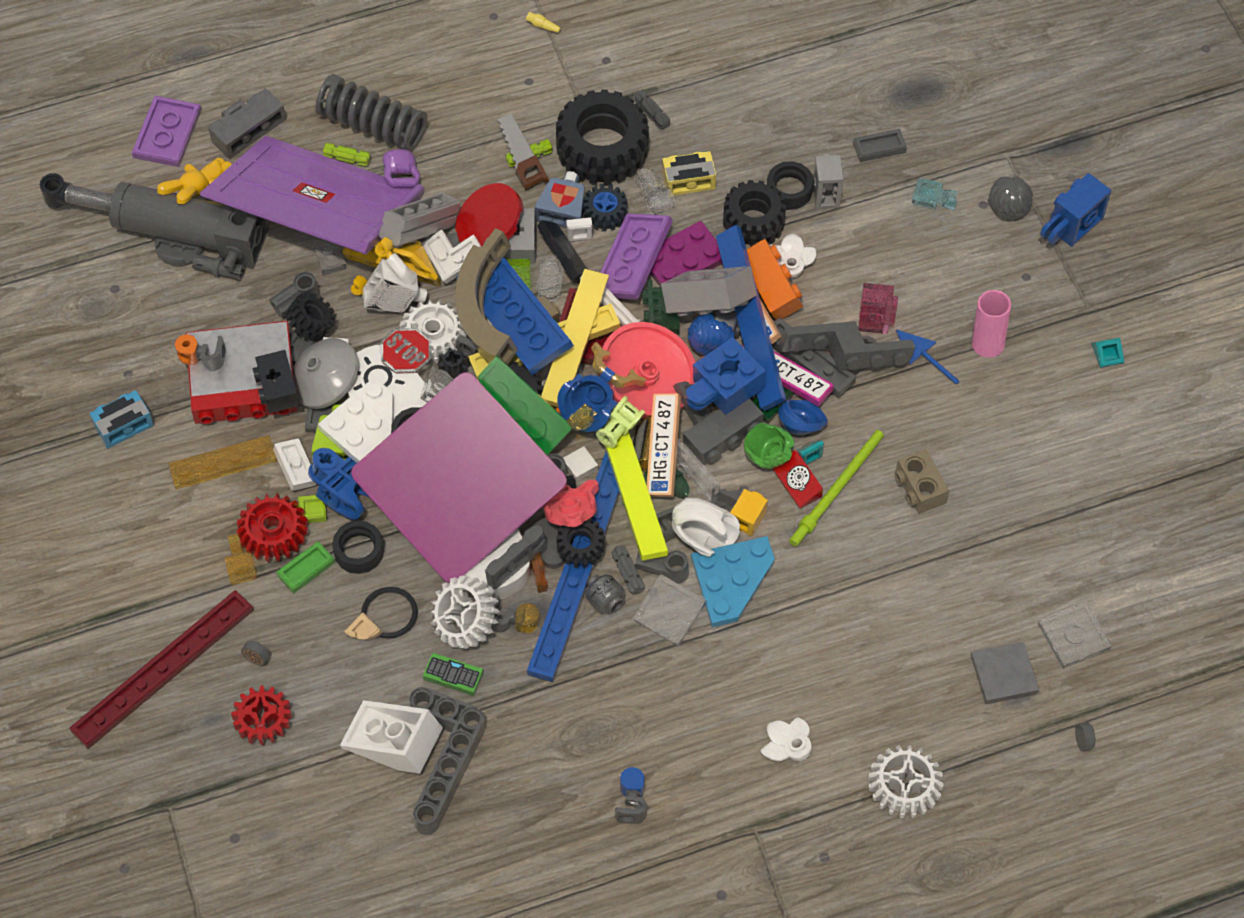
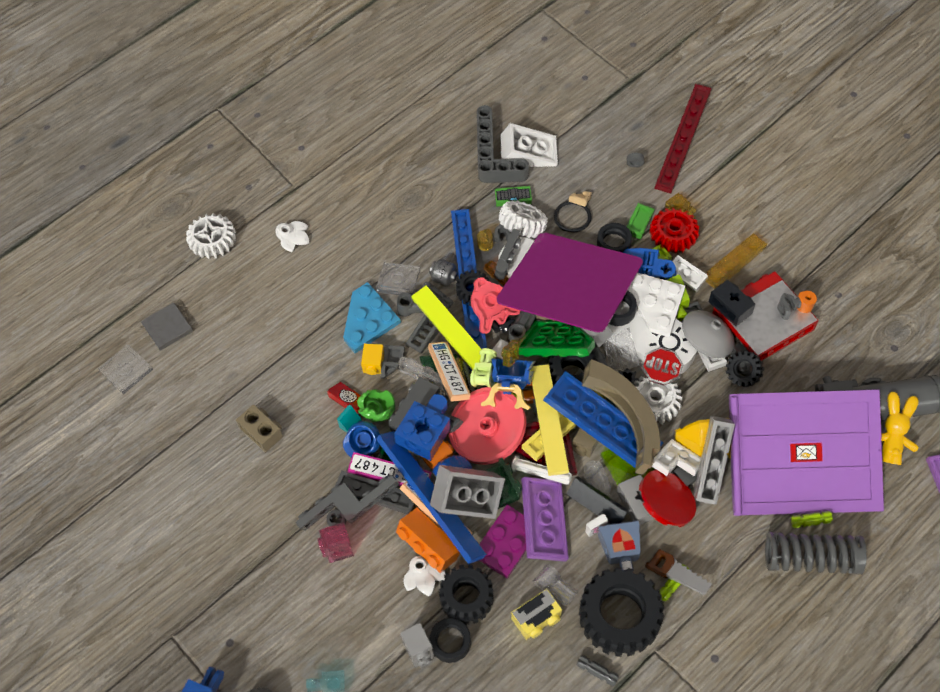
camera: 160 degrees right, 0 degrees up
(121, 419) = (817, 256): brick -> none
(246, 123) = (904, 501): flat silver piece -> none
(273, 718) = (609, 130): red gear -> none
(284, 298) = (769, 380): dark grey piece -> none
(391, 284) = (701, 408): white torso -> none
(400, 162) = (764, 523): medium lavender piece -> none
(598, 200) = (592, 550): black wheel -> none
(633, 789) = (375, 173): leg -> none
(704, 525) = (399, 328): white hair -> none
(809, 521) = (330, 370): lime bar -> none
(921, 346) = (299, 541): blue piece -> none
(991, 323) = (238, 557): bright pink piece -> none
(1085, 736) = (102, 302): dark grey tile -> none
(1108, 352) = (146, 598): teal slope -> none

